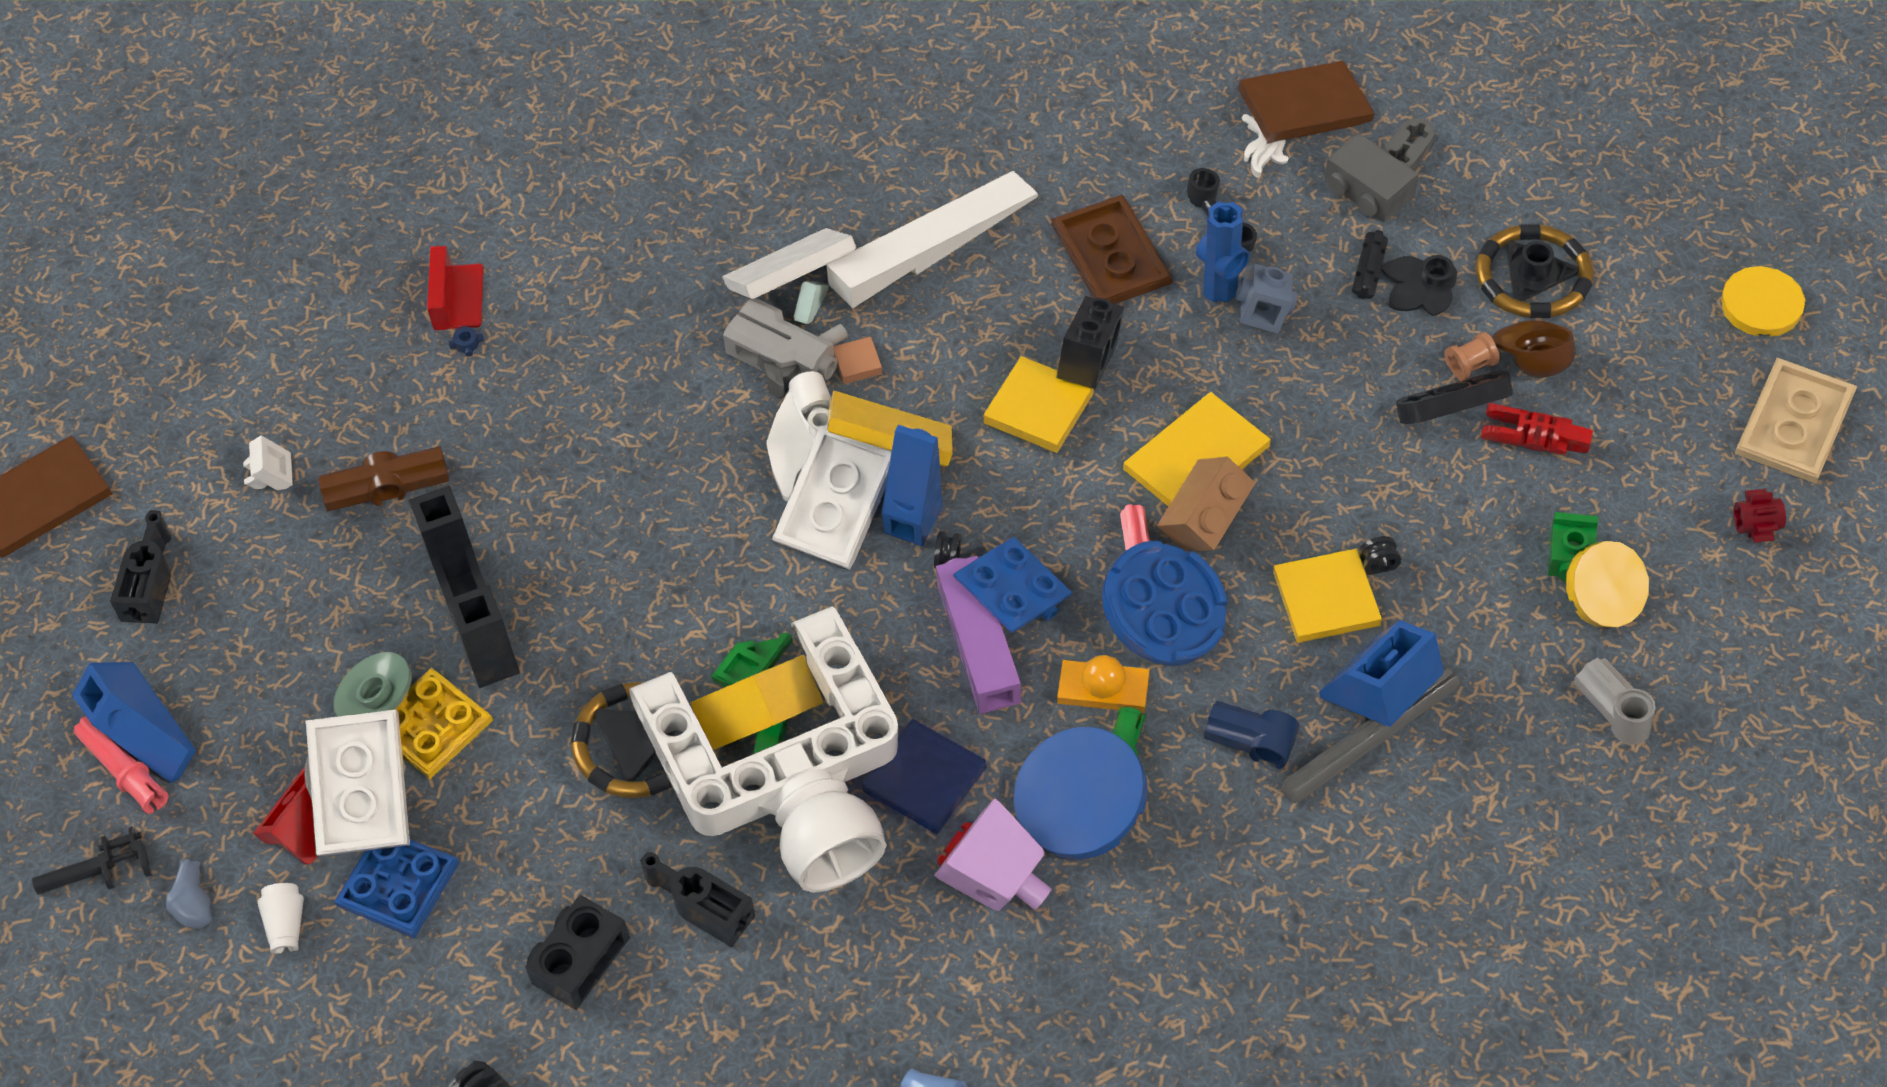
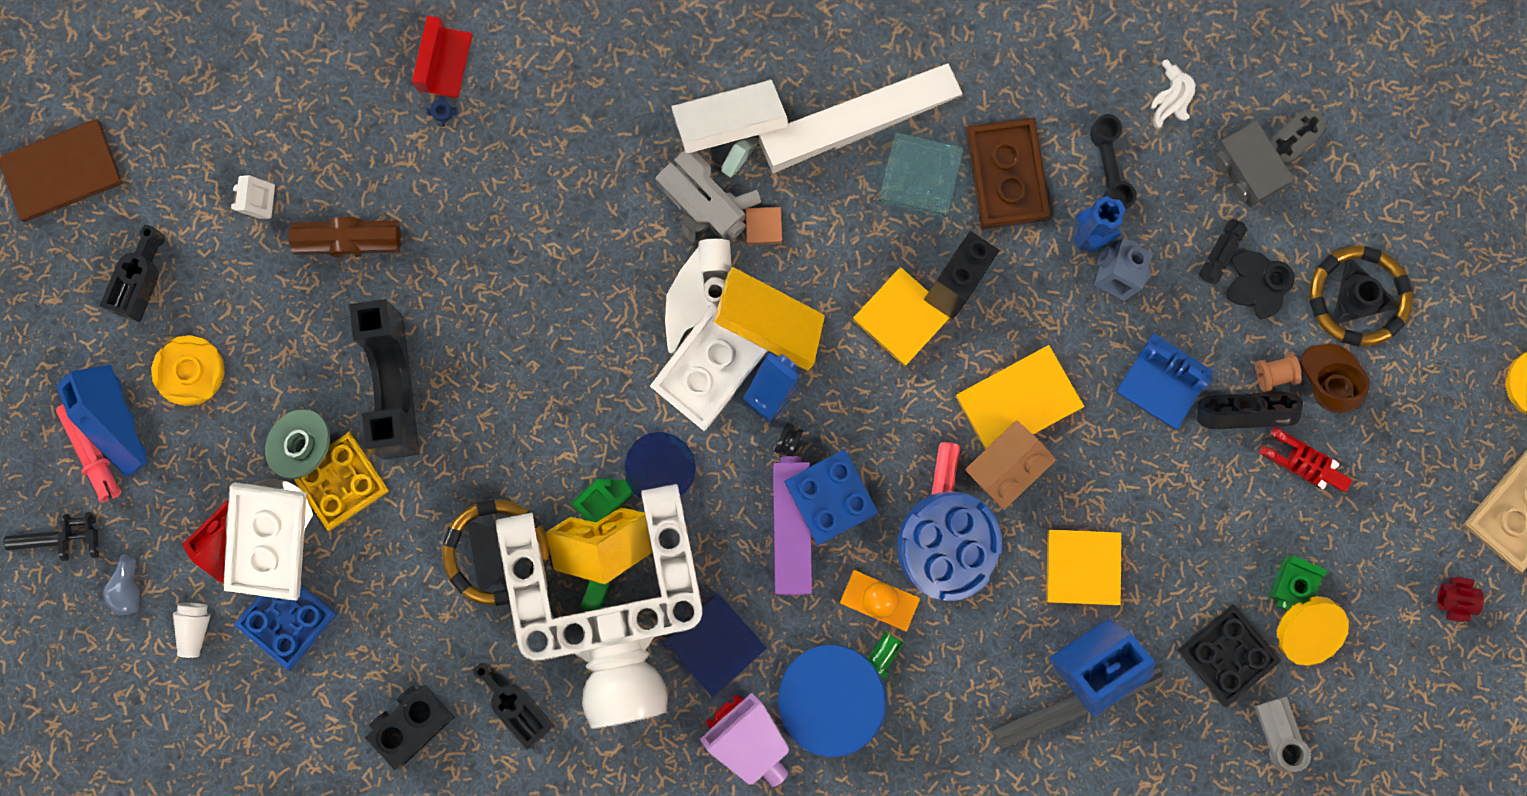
camera: 10 degrees right, 25 degrees up
(231, 666) = (194, 379): none -> yellow tile
(798, 599) = (659, 461): none -> clear blue tile
(1016, 271) = (921, 174): none -> clear light blue tile
(1262, 736) = (989, 684): dark blue piece -> none
(1305, 101) = (1223, 63): reddish brown tile -> none
(1351, 396) = (1165, 381): none -> blue hinge
(1379, 555) = (1137, 546): black bush -> none
(1525, 641) = (1229, 655): none -> black tile

